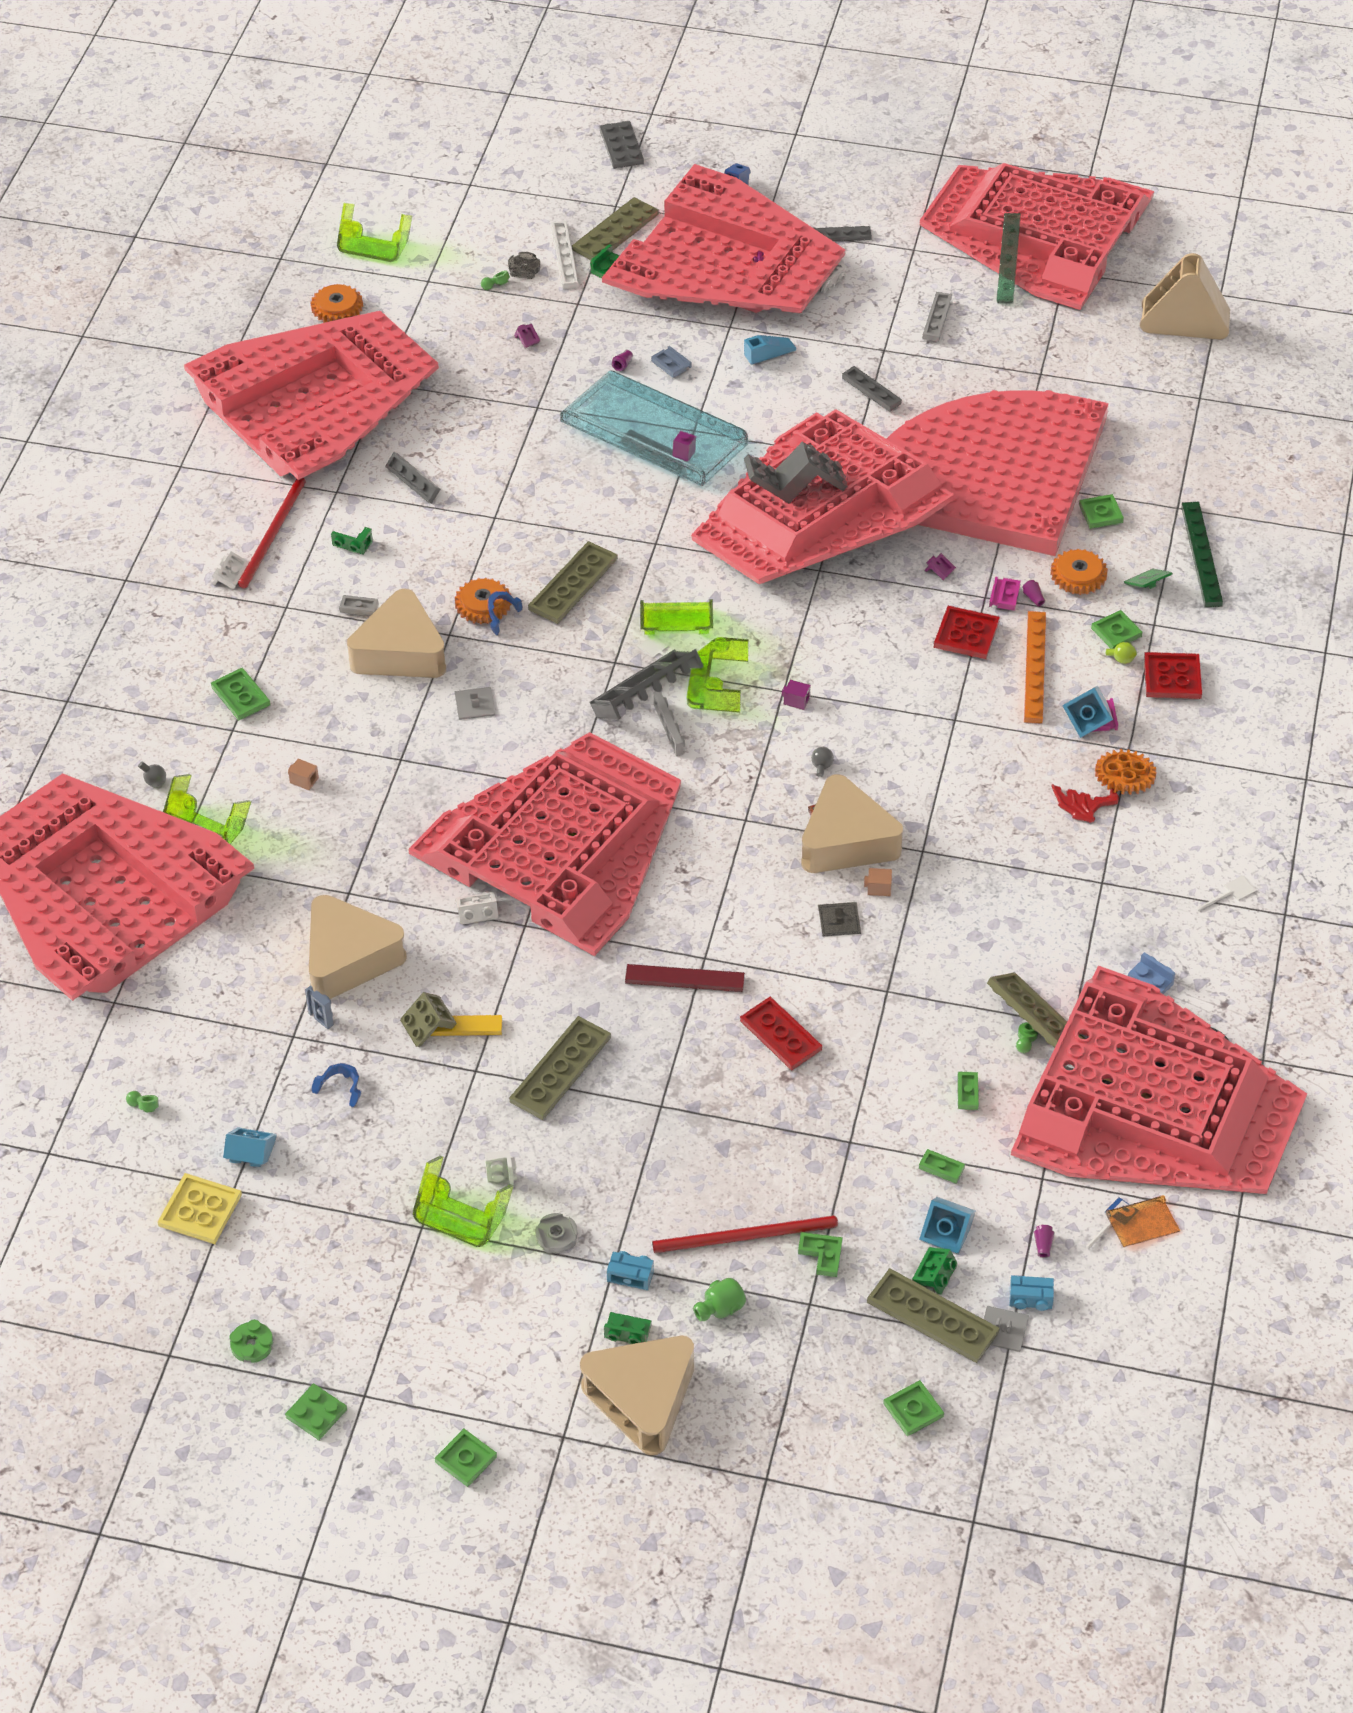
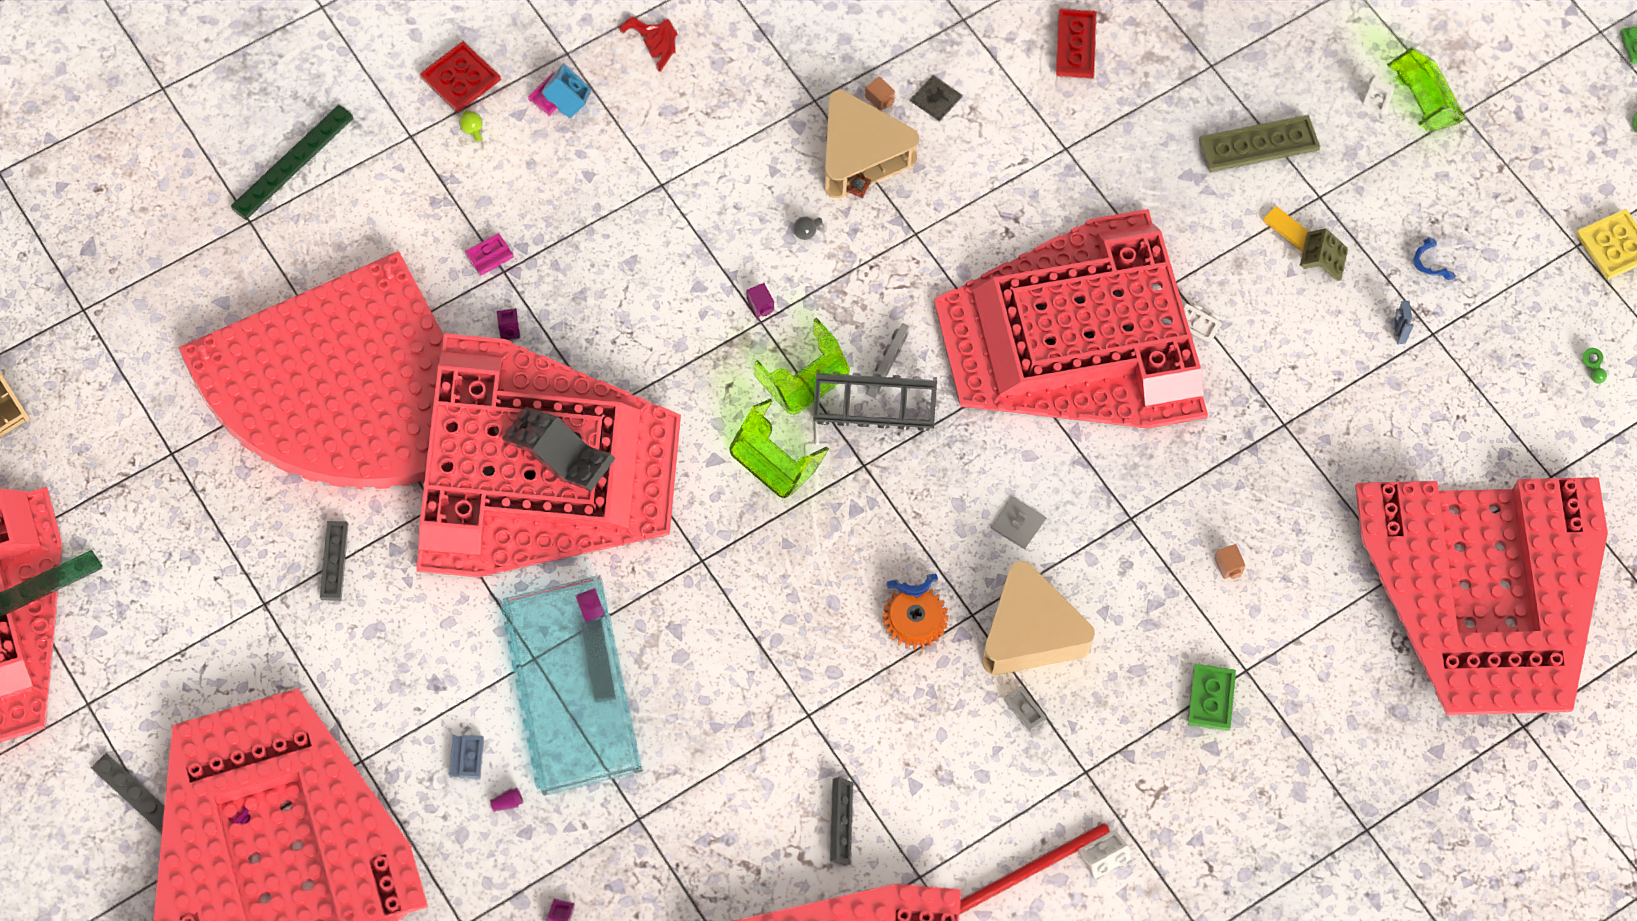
camera: 140 degrees left, 15 degrees up
(153, 774) = (1357, 666): dark grey piece -> none
(183, 806) = (1355, 577): clear neon green windscreen -> none
(248, 1146) = (1541, 262): dark azure slope -> none
(350, 946) = (1337, 356): tan brick -> none
(353, 544) = (955, 781): green bracket -> none
(559, 1243) = (1371, 39): light grey plate -> none
(572, 582) = (818, 572): olive plate -> none
(684, 978) = (1099, 142): dark red tile -> none
(766, 347) = (367, 688): dark azure slope -> none
(937, 316) = (176, 593): light grey plate -> none
(966, 632) = (562, 245): red plate -> none
(1033, 592) = (466, 236): magenta cone -> none
(1035, 667) = (547, 175): orange plate -> none
(1079, 571) = (409, 222): orange gear -> none
(1101, 511) = (316, 263): bright green plate -> none
(1116, 629) = (449, 149): bright green plate -> none
(1125, 771) = (616, 26): orange gear -> none
(1148, 578) = (367, 168): piece -> none

